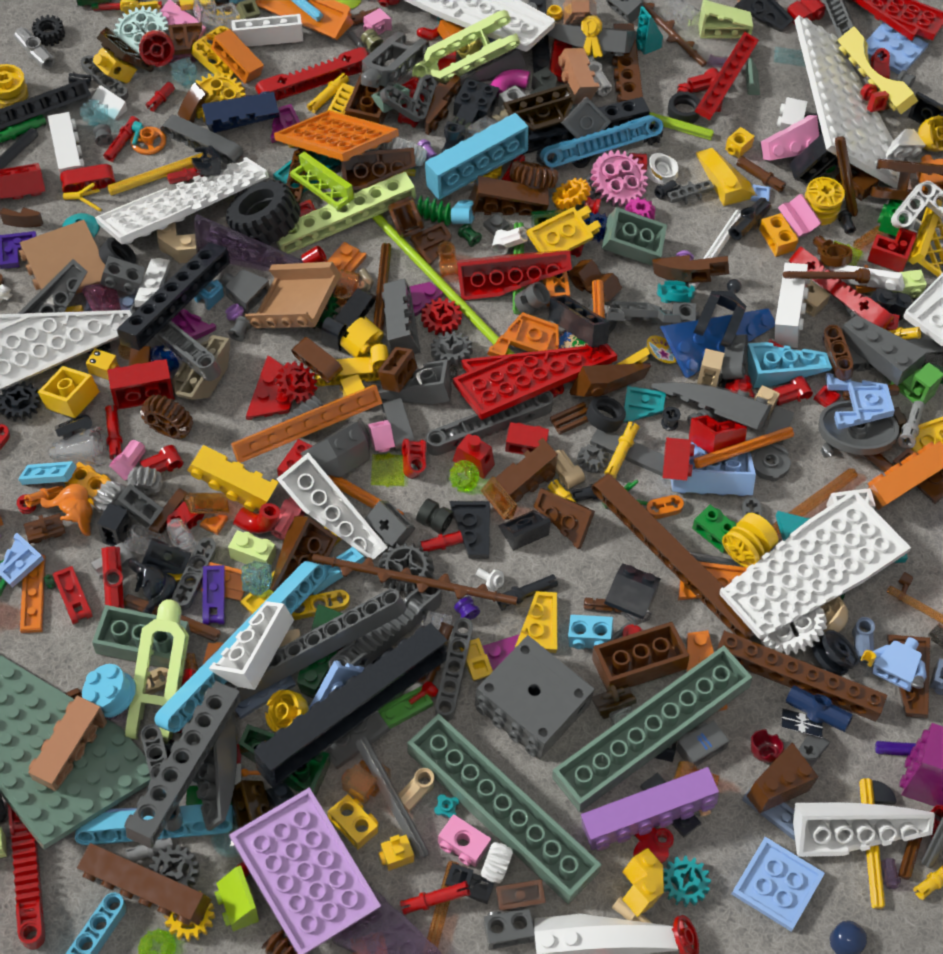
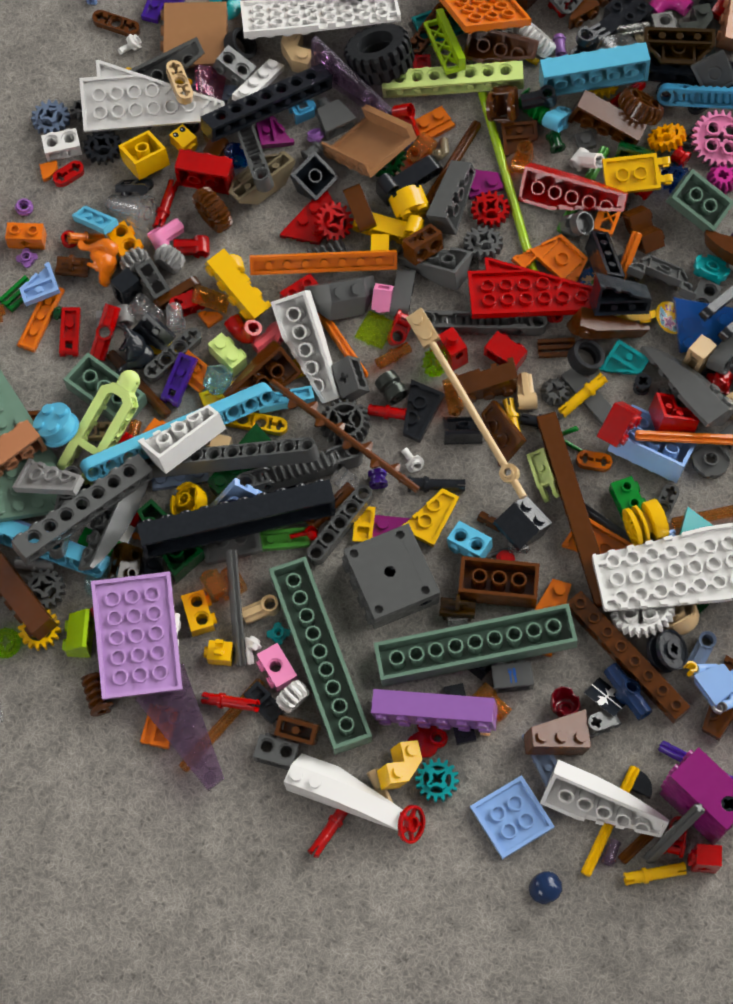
camera: 30 degrees right, 10 degrees up
(87, 319) = (178, 88): none -> tan beam
(125, 751) = (43, 479): none -> light grey wing
(254, 350) = (313, 177): none -> black slope
(419, 486) = (393, 355): none -> clear orange pin
(426, 829) = (251, 644): none -> white plate
(441, 197) = (539, 98): none -> black piece
(450, 452) = (428, 337): none -> tan bar
(490, 111) = (630, 29): none -> clear smoke axle
(612, 343) = (618, 296): none -> black wedge
(623, 537) = (542, 473): none -> yellowish green hinge

